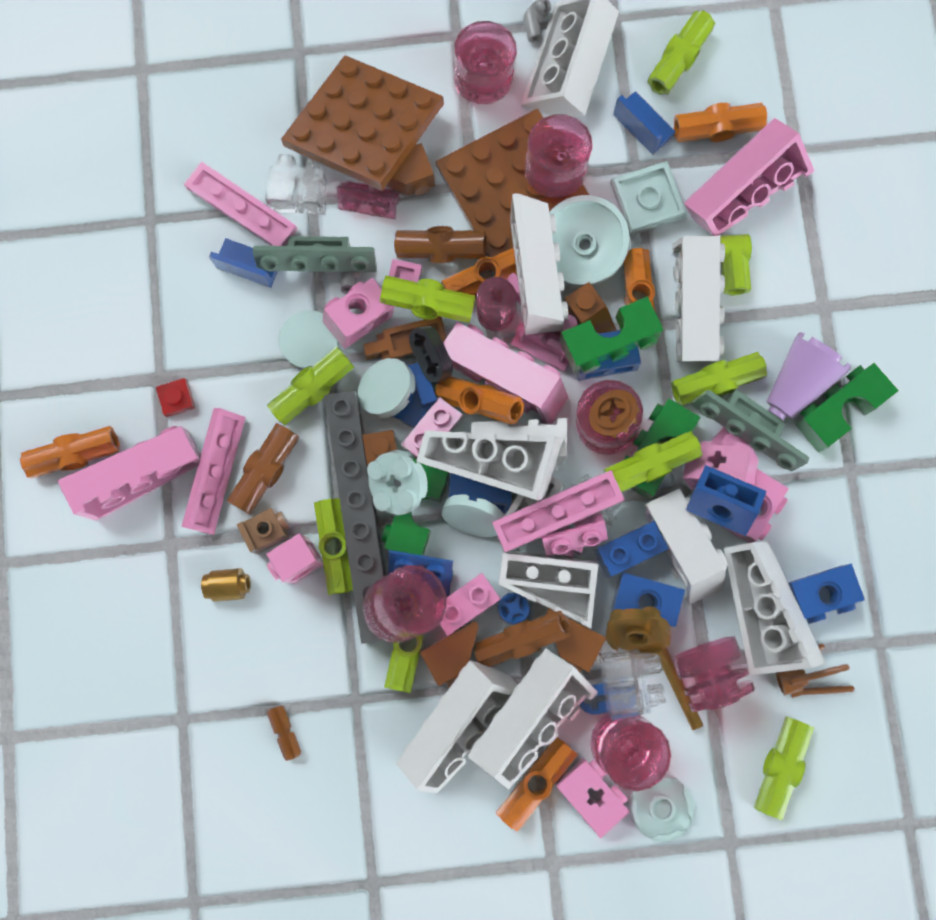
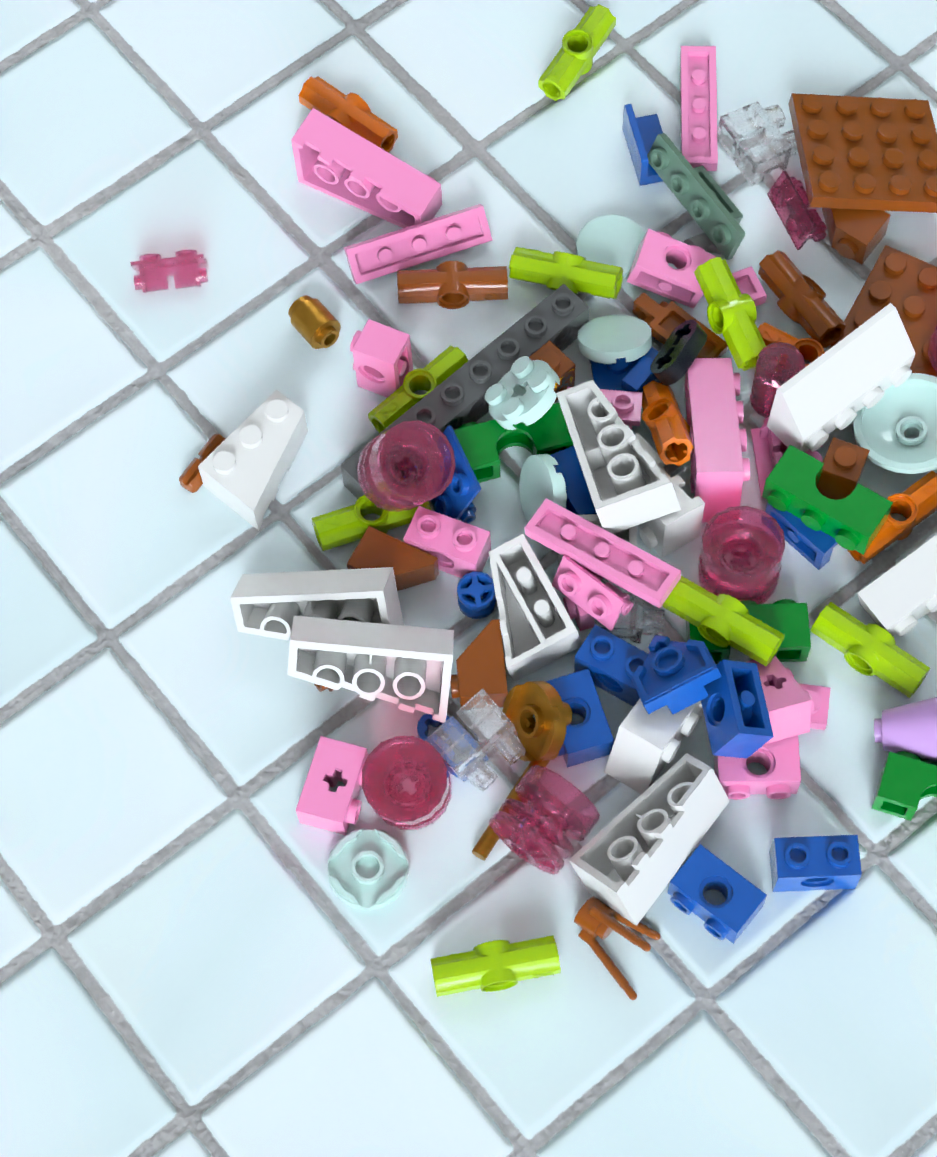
camera: 55 degrees right, 15 degrees down
(102, 674) = (183, 267): none -> clear pink hinge
(129, 243) = (577, 52): none -> lime piece
(175, 397) = (466, 171): red plate -> none
(259, 542) = (393, 314): medium nougat brick -> none
(308, 696) = (255, 457): none -> white wedge
(522, 639) = (450, 611): dark orange piece -> none
(522, 799) = (286, 720): orange piece -> none
(605, 407) = (743, 543): dark orange gear -> none
(676, 523) = (674, 674): none -> blue plate
(752, 424) = (845, 703): sand green bracket -> none
(843, 516) = (815, 863): none -> blue brick

